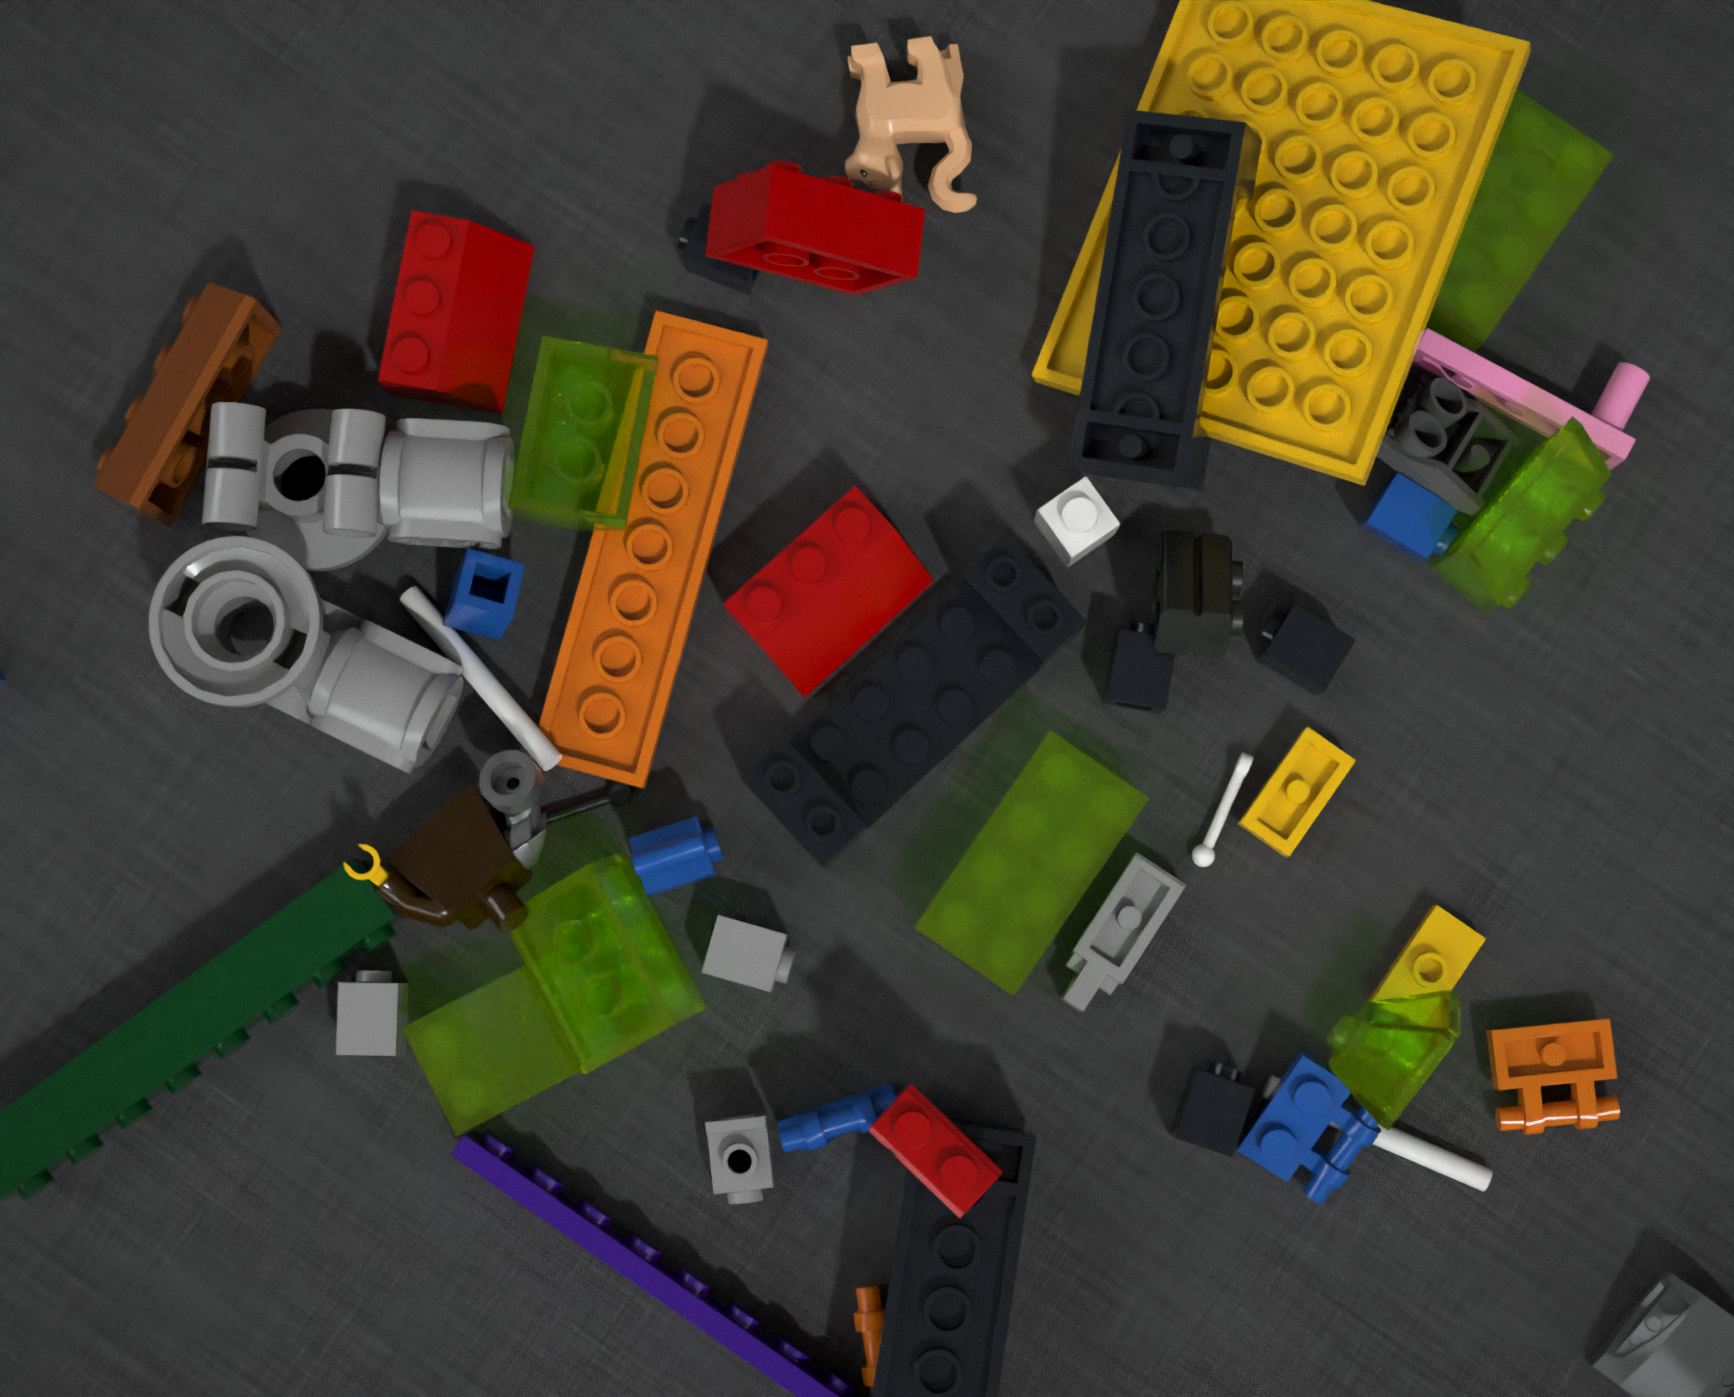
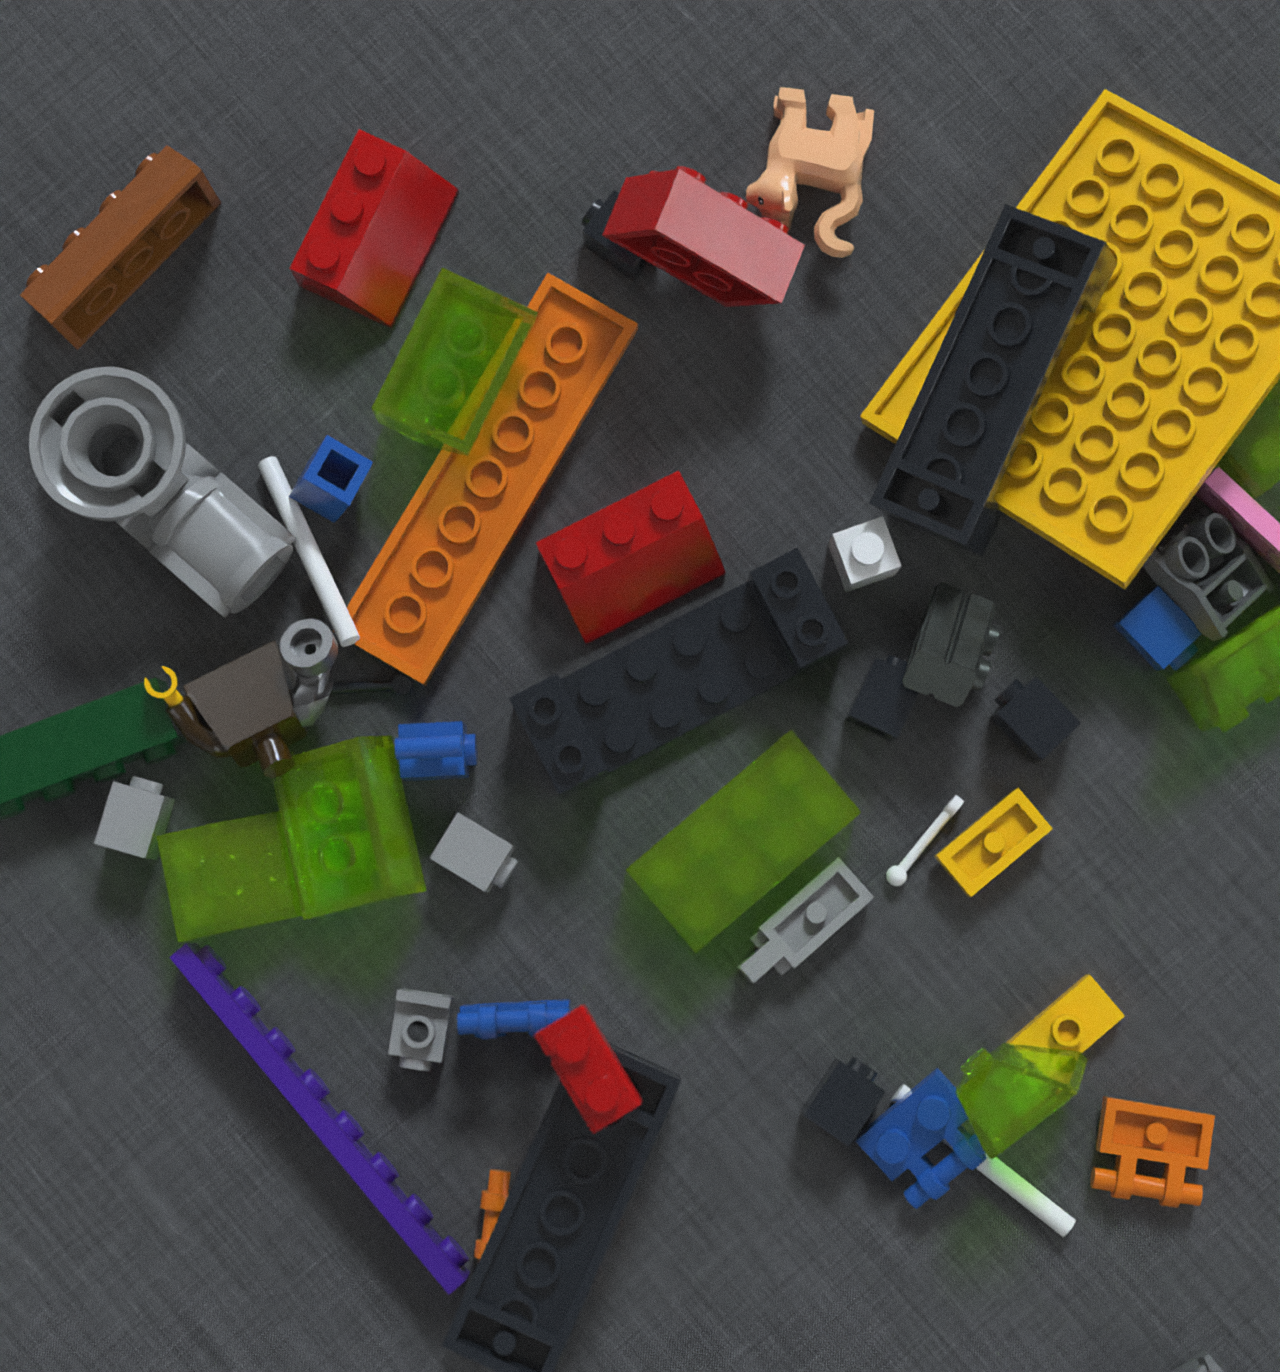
camera: 15 degrees right, 0 degrees up
(421, 483) = (292, 367): light grey piece -> none

